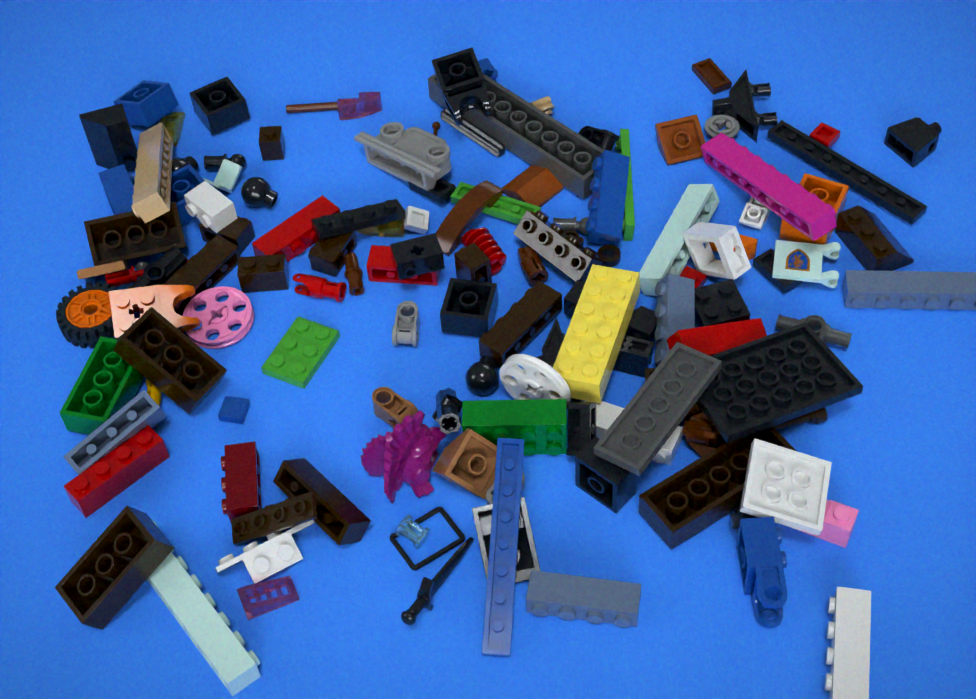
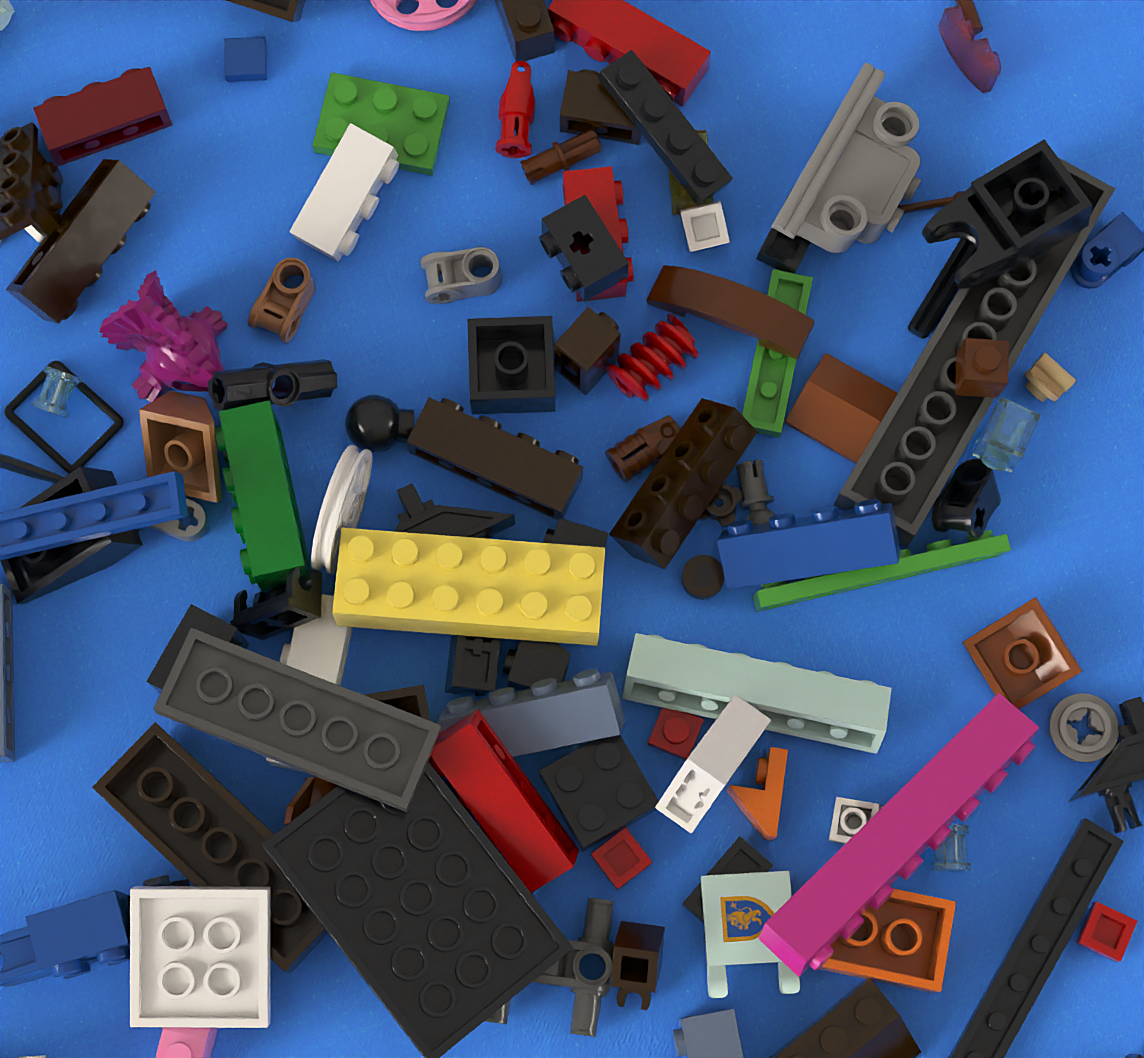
camera: 70 degrees right, 25 degrees up
(341, 366) = (345, 193): none -> white brick
(537, 110) = (982, 367): none -> reddish brown brick
(572, 113) = (1005, 435): none -> clear light blue arch
(759, 309) = (621, 858): none -> red plate
(814, 302) = (637, 961): none -> dark brown brick

